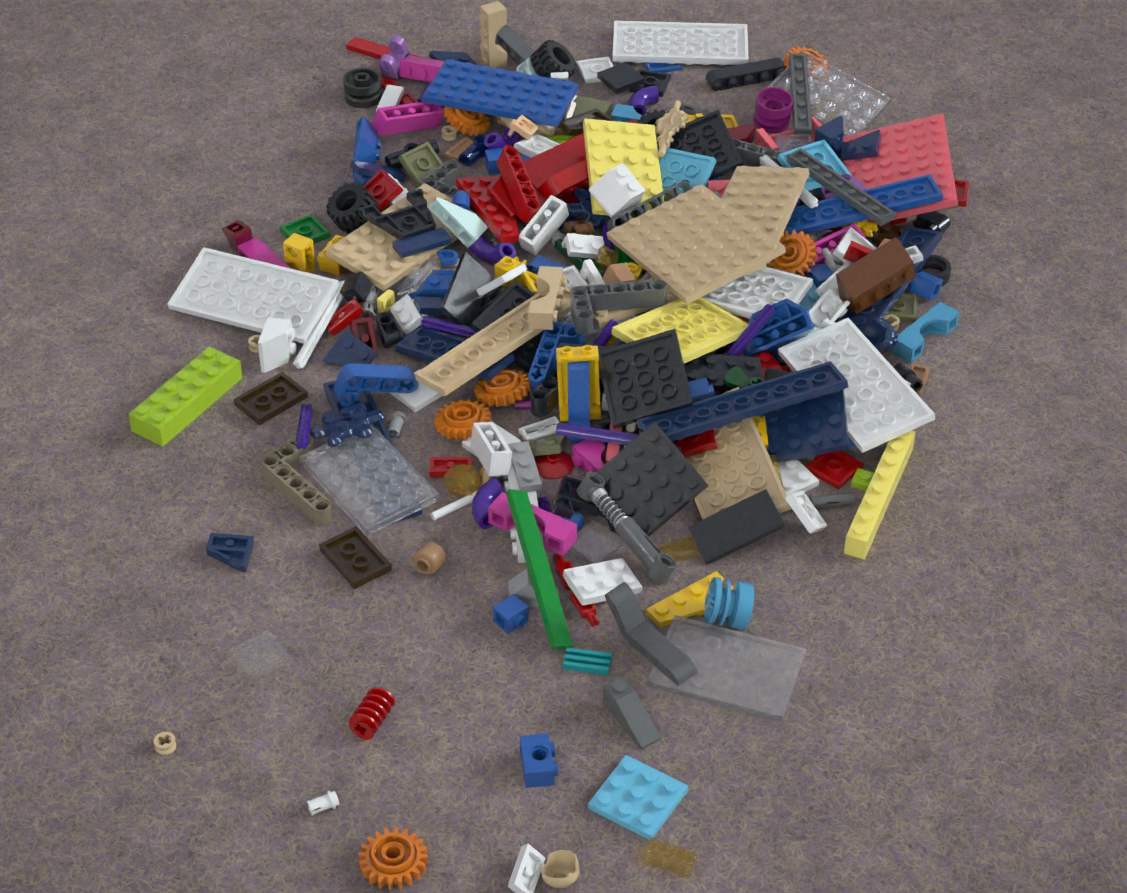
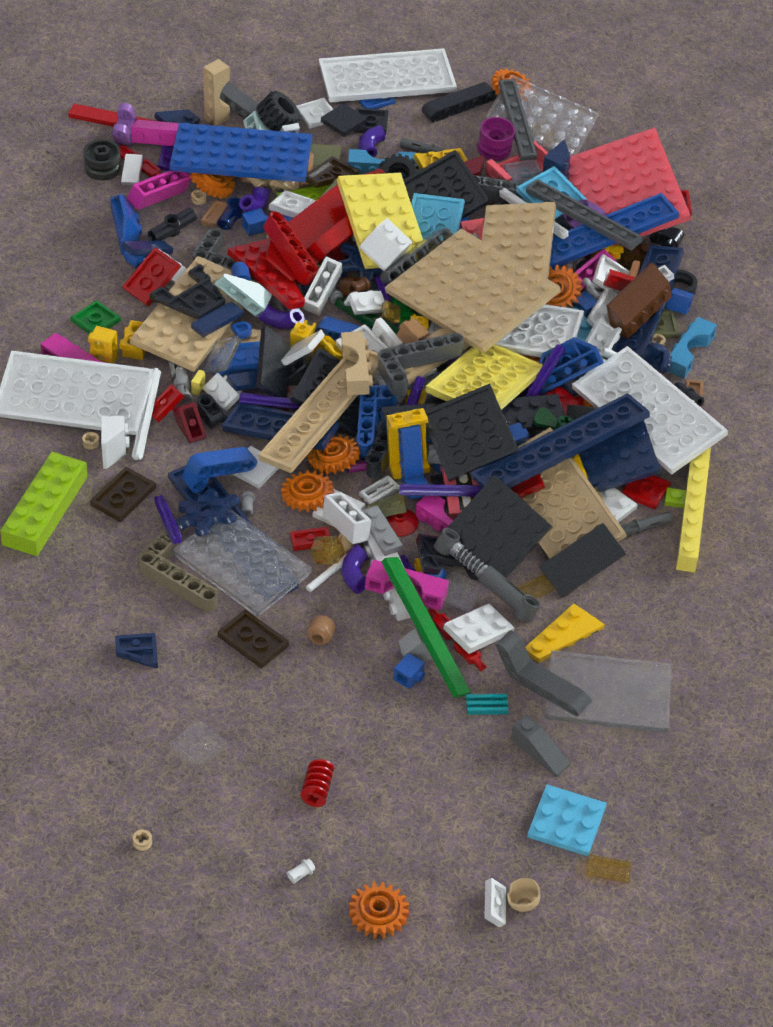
camera: 15 degrees left, 5 degrees up
(237, 233) = (37, 331): dark red slope -> none
(344, 206) = (128, 282): black tyre -> none
(350, 350) = (183, 438): dark blue wing -> none
(356, 287) = (169, 372): black brick -> none
(420, 162) = (185, 234): olive tile -> none
(523, 126) = (274, 186): light nougat bracket -> none
(537, 760) = (474, 812): blue brick -> none
(668, 125) = (411, 170): tan piece -> none
(733, 604) = (597, 633): dark azure wheel -> none
(806, 512) = (639, 538): white tile -> none
(862, 147) = (588, 168): dark blue wing -> none

